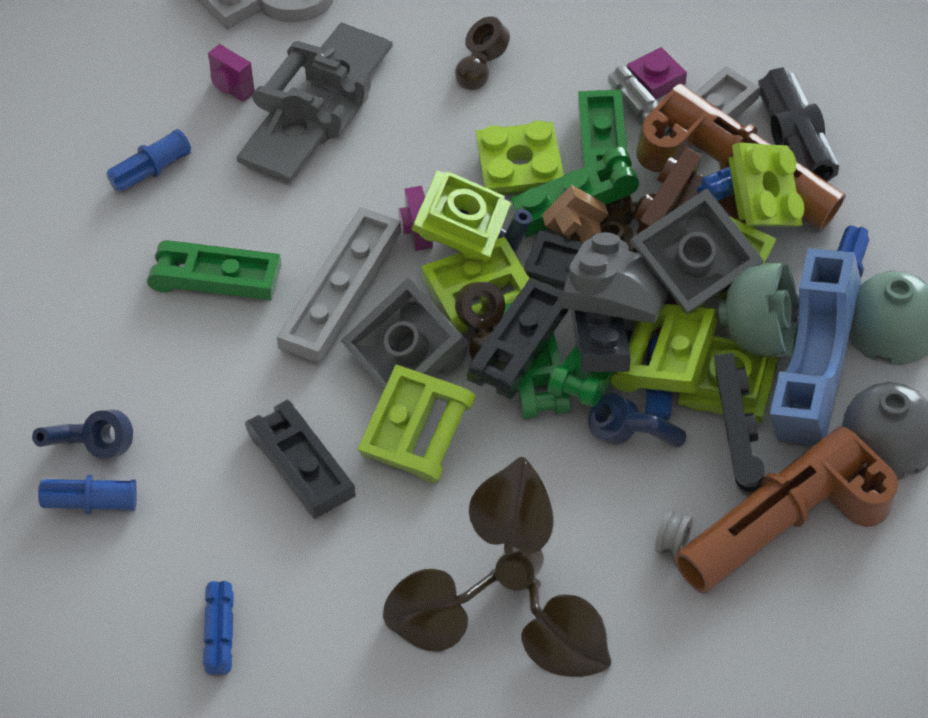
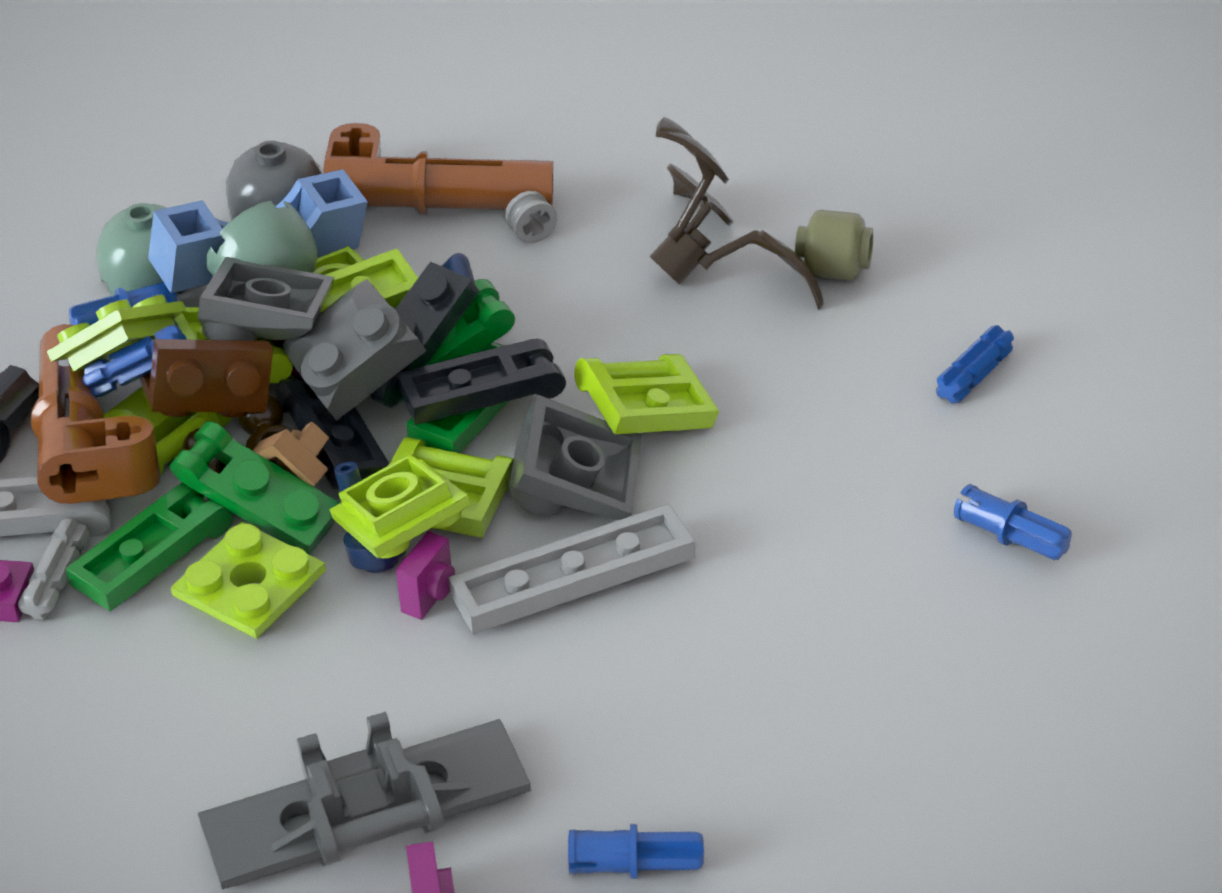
camera: 140 degrees left, 10 degrees down
(93, 433) = (952, 564): dark blue plate -> none
(214, 270) = (687, 665): green plate -> none
(301, 459) = (776, 441): black plate -> none
(408, 653) = (835, 244): none -> olive head
(485, 41) = (159, 722): dark brown plate -> none
(490, 314) = (487, 436): dark brown plate -> none
(739, 427) = (393, 225): black plate -> none

